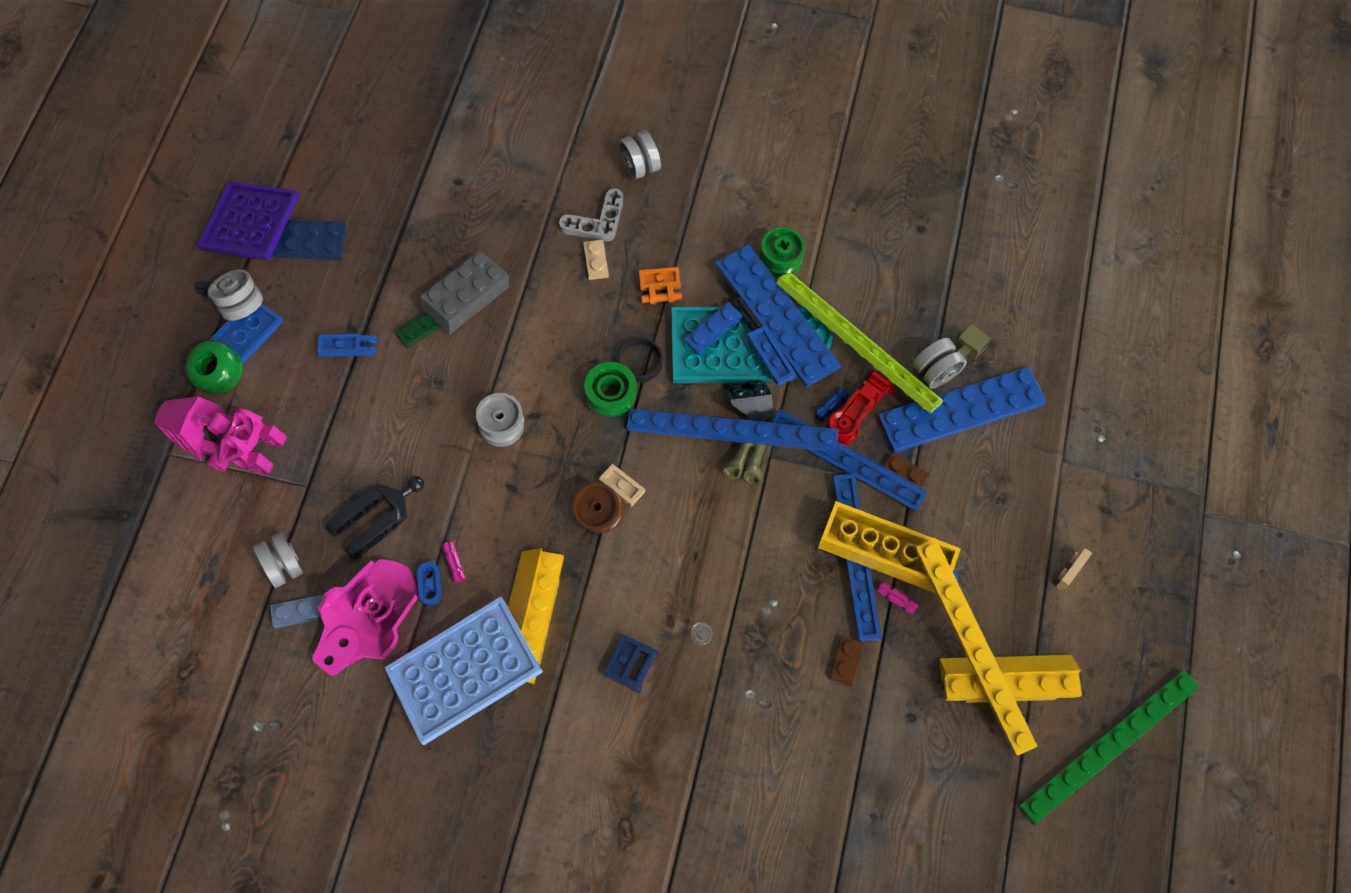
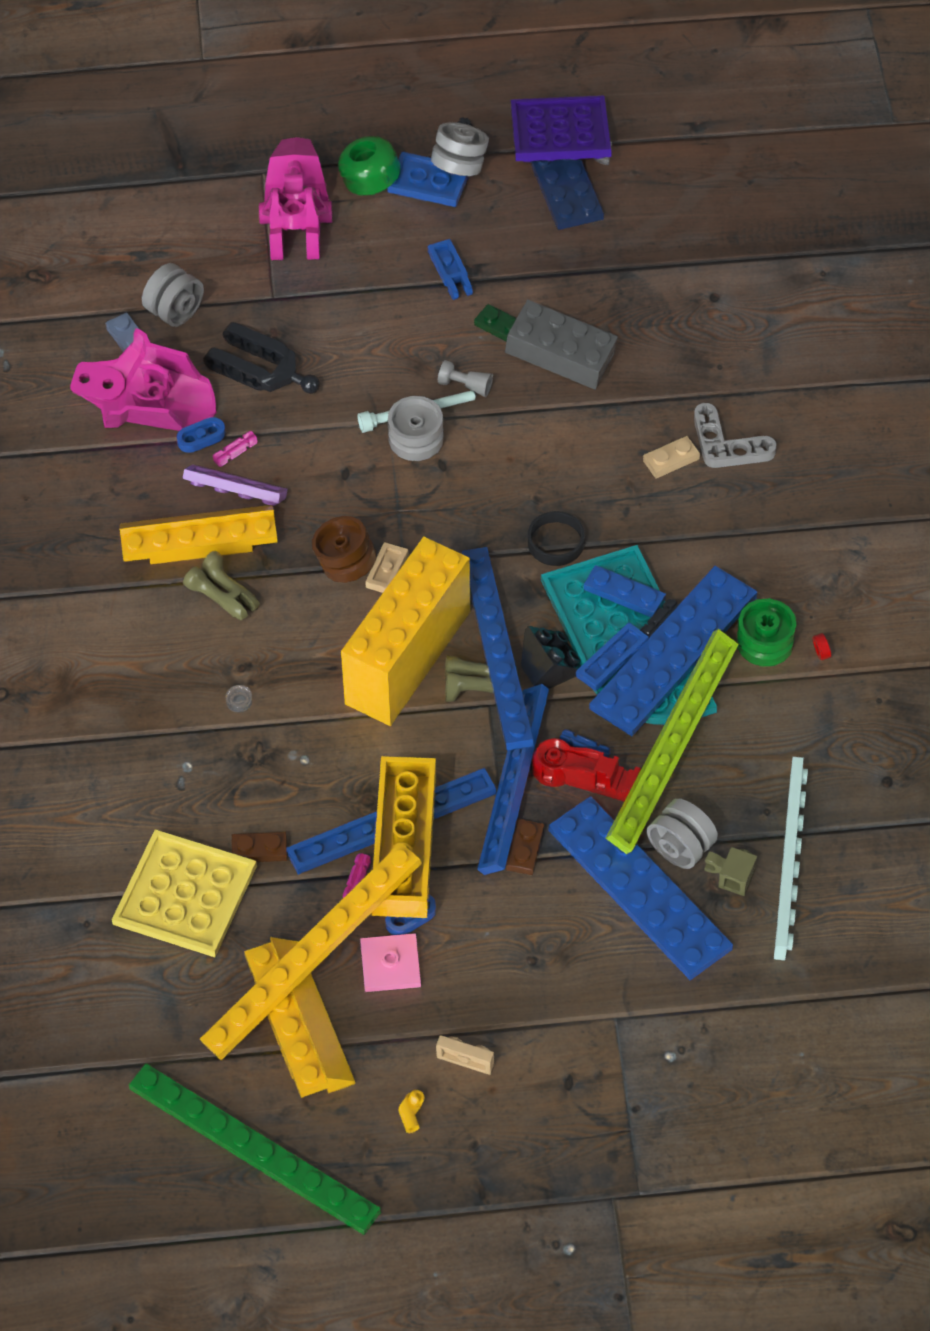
camera: 75 degrees right, 10 degrees down
(463, 670) = (111, 487): light blue plate -> none
(469, 364) = (475, 381): none -> light grey piece
(472, 452) = (368, 421): none -> light aqua piece
(492, 572) = (227, 482): none -> medium lavender plate
(602, 603) = (212, 568): none -> olive piece
(608, 375) = (498, 501): green piece -> none
(624, 660) = (178, 633): dark blue plate -> none
(639, 154) = (828, 445): light grey wheel -> none
(660, 279) = (670, 522): orange plate -> none
(708, 483) = (406, 631): none -> yellow brick
(803, 224) = (821, 646): none -> red tile
(874, 730) = (184, 893): none -> light yellow plate
(971, 307) = (790, 867): none -> light aqua plate
(981, 595) = (390, 962): none -> bright pink plate
(1100, 619) = (409, 1108): none -> yellow arm

